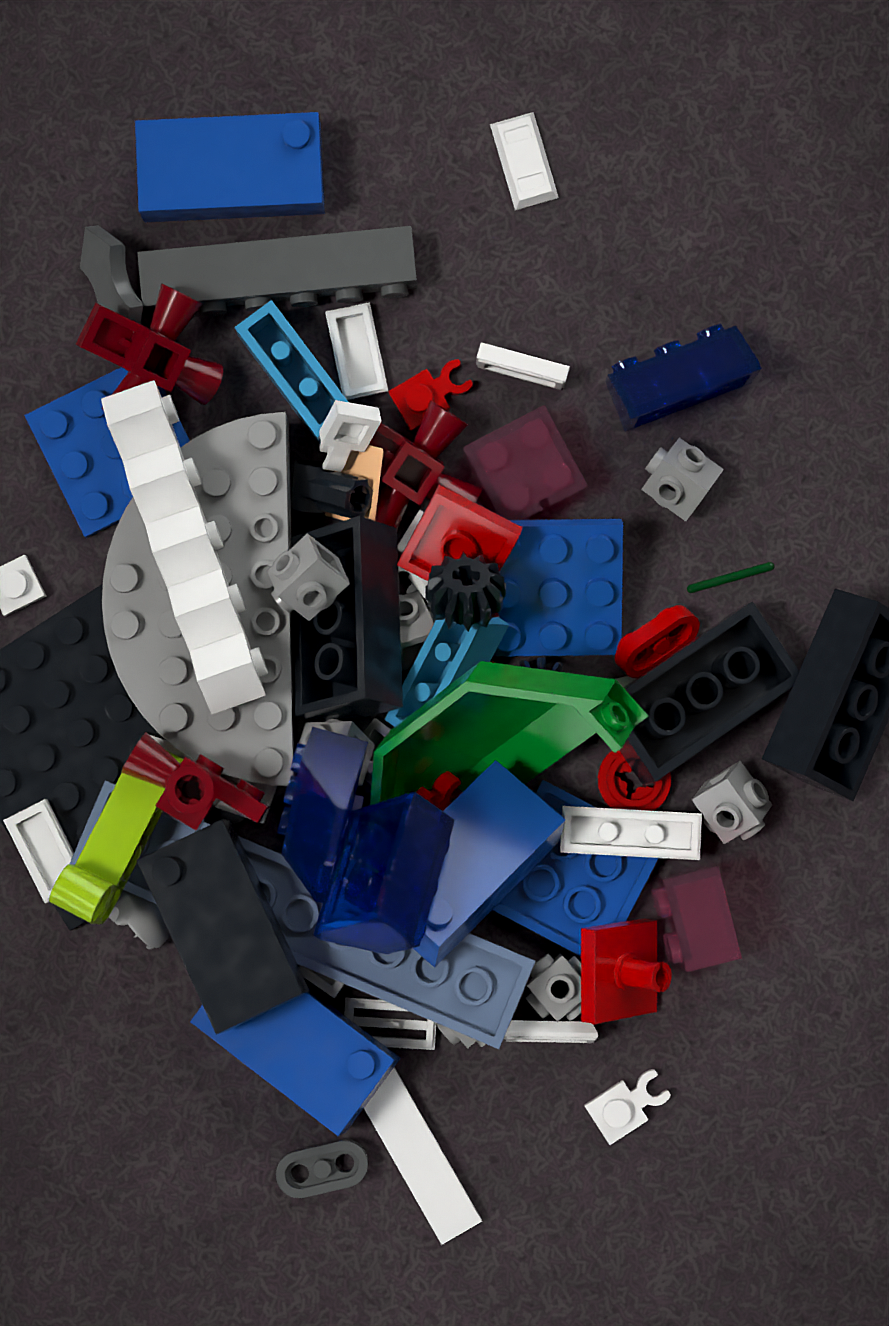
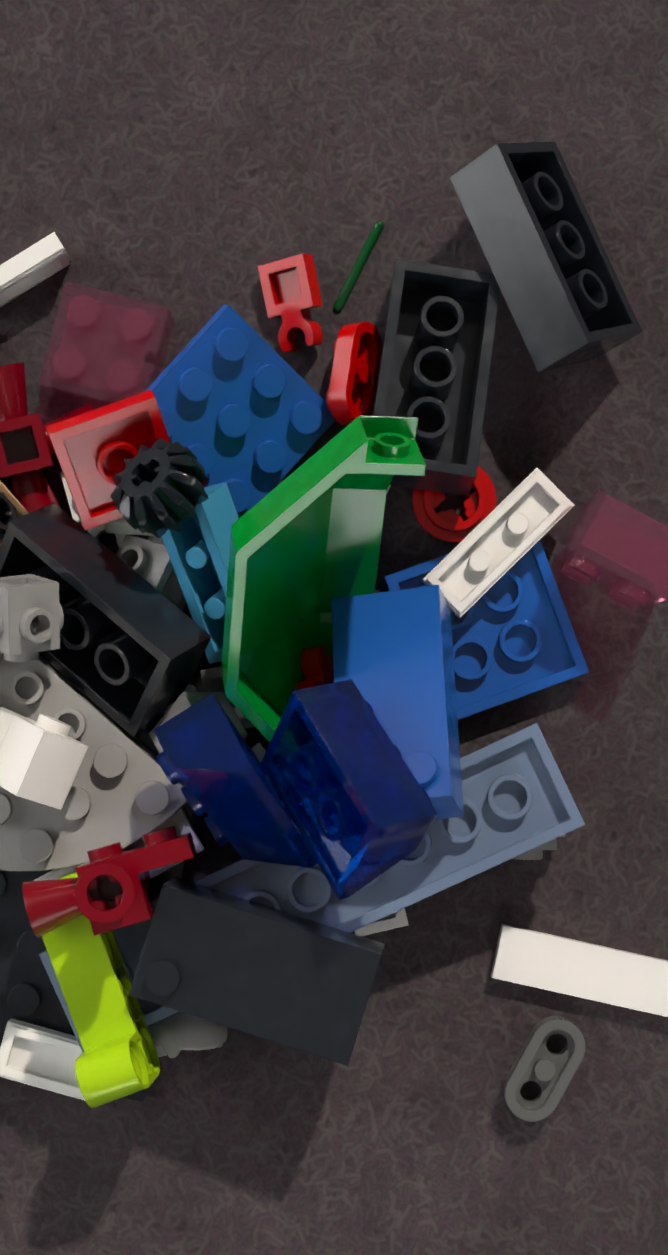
camera: 50 degrees left, 0 degrees up
(310, 1057) = (442, 992): blue brick -> none
(430, 1026) = (439, 927): white tile -> none
(543, 975) = (554, 720): light grey brick -> none
(551, 1031) = (606, 762): white tile -> none
(621, 971) = (609, 658): red tile -> none
(671, 551) = (290, 292): none -> red plate
(680, 478) = (236, 227): light grey brick -> none
(681, 375) = (152, 147): clear blue slope -> none
(733, 803) = (552, 434): light grey brick -> none

